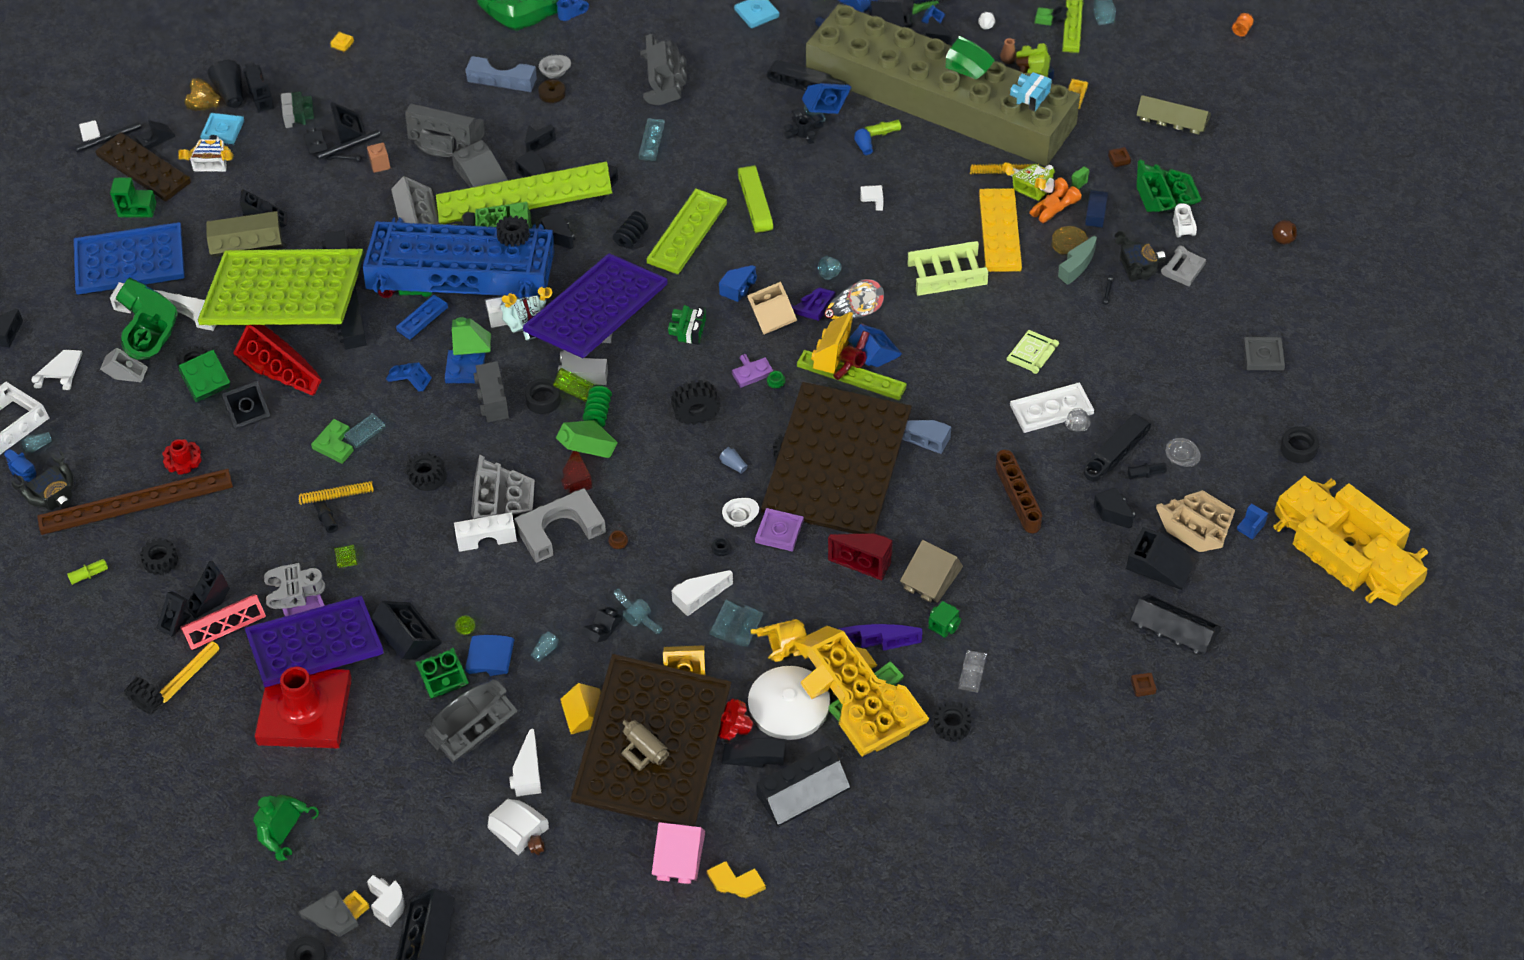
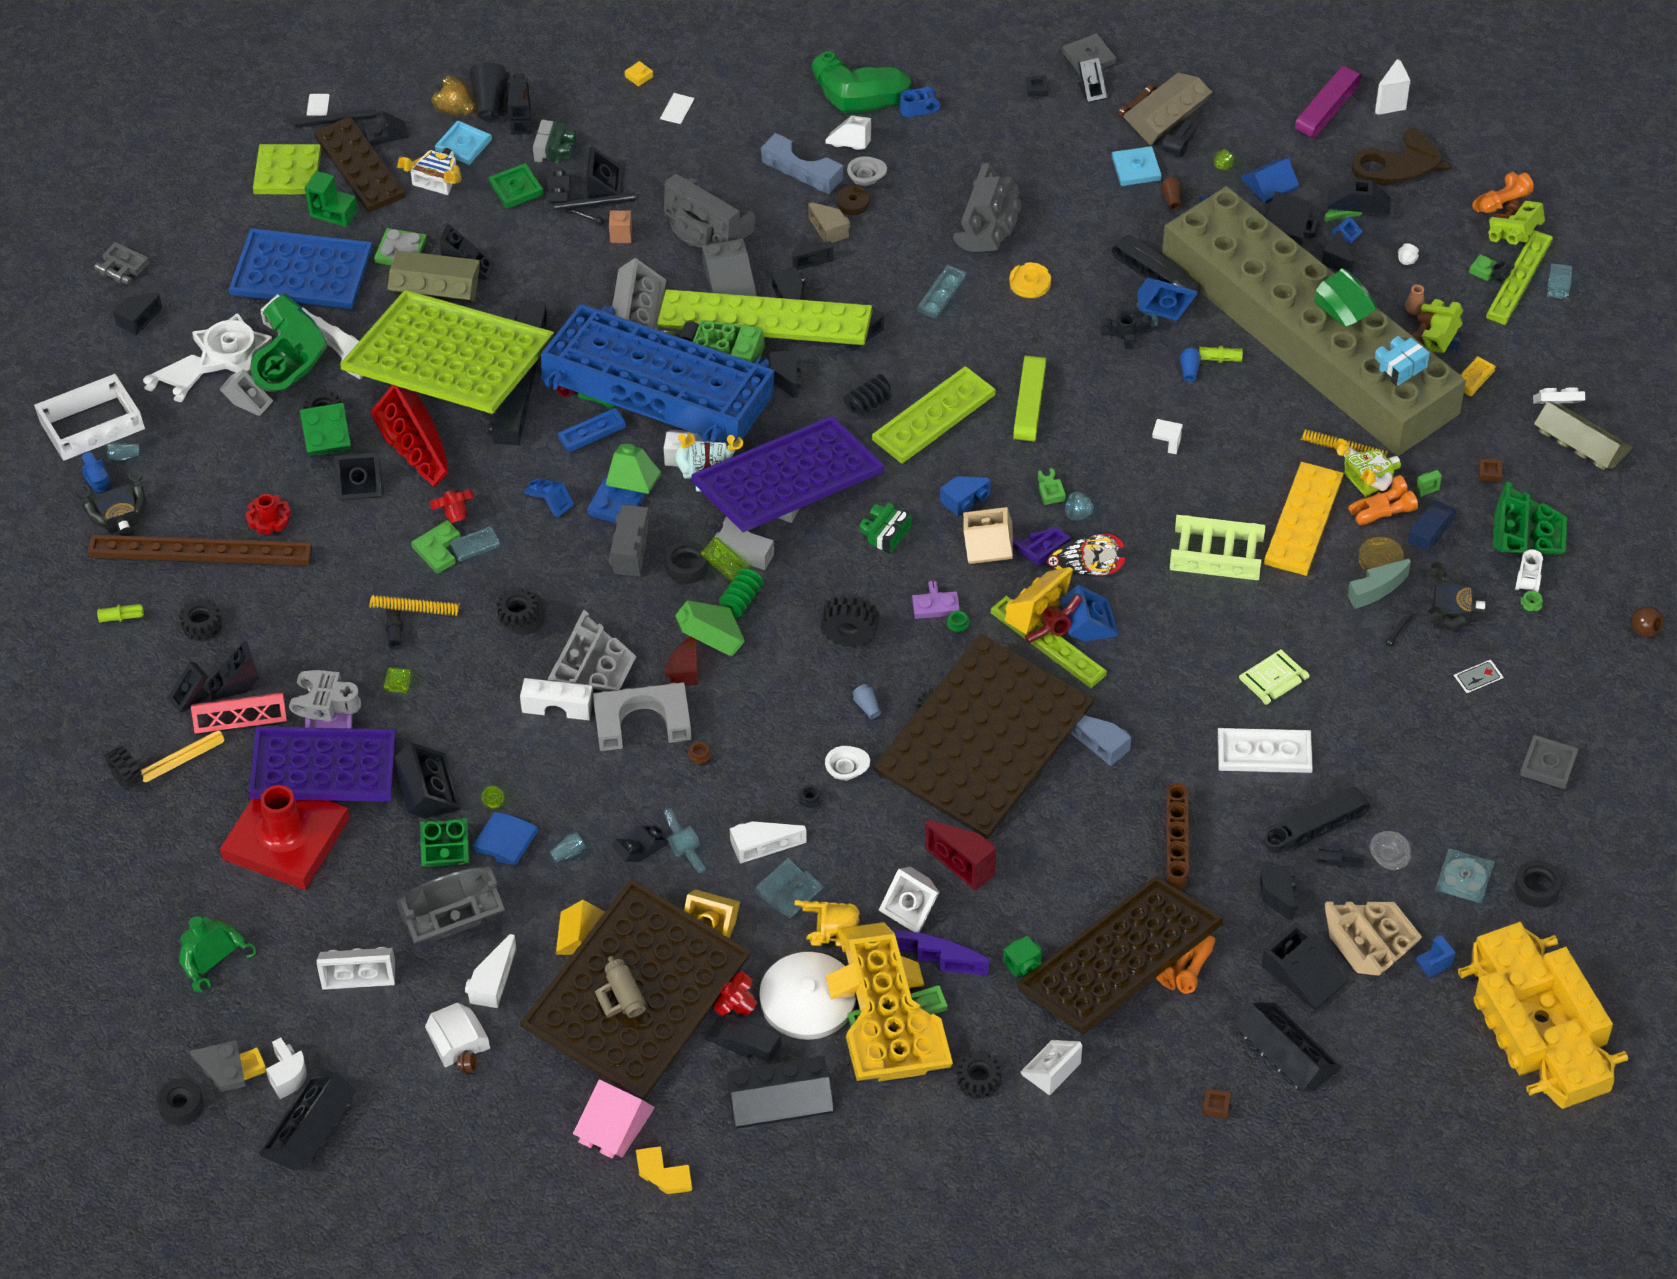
camera: 20 degrees right, 0 degrees up
(84, 185) = (285, 168): none -> lime plate
(94, 333) = (229, 345): none -> white plate
(199, 216) = (398, 240): none -> light grey piece
(279, 149) = (515, 186): none -> green plate
(335, 404) = (453, 504): none -> red plant
(383, 60) = (677, 108): none -> white sticker
(412, 797) = (356, 968): none -> white slope
(512, 231) = (721, 367): black tyre -> none
(530, 41) = (853, 132): none -> white slope
(541, 111) = (829, 222): none -> dark tan slope
(714, 113) = (1030, 280): none -> yellow tile
(779, 529) = (883, 796): medium lavender plate -> none
(792, 20) = (1172, 191): none -> reddish brown cone
(801, 261) = (1050, 489): none -> bright green plate
(837, 602) = (909, 898): none -> white slope
(930, 572) = (1030, 899): dark tan slope -> none
(972, 671) = (1029, 1027): clear slope -> none
(1005, 694) = (1053, 1064): none -> white slope
(1019, 594) = (1119, 954): none -> dark brown plate
(1071, 572) = (1186, 979): none -> orange piece
(1077, 420) = (1285, 774): clear cone -> none
(1145, 90) = (1567, 395): none -> white plate
(1181, 307) = (1478, 676): none -> sticker
(1189, 268) = (1509, 632): light grey plate -> none
(1194, 241) = (1532, 601): none -> bright green plate
(1243, 455) = (1465, 875): none -> clear light blue piece

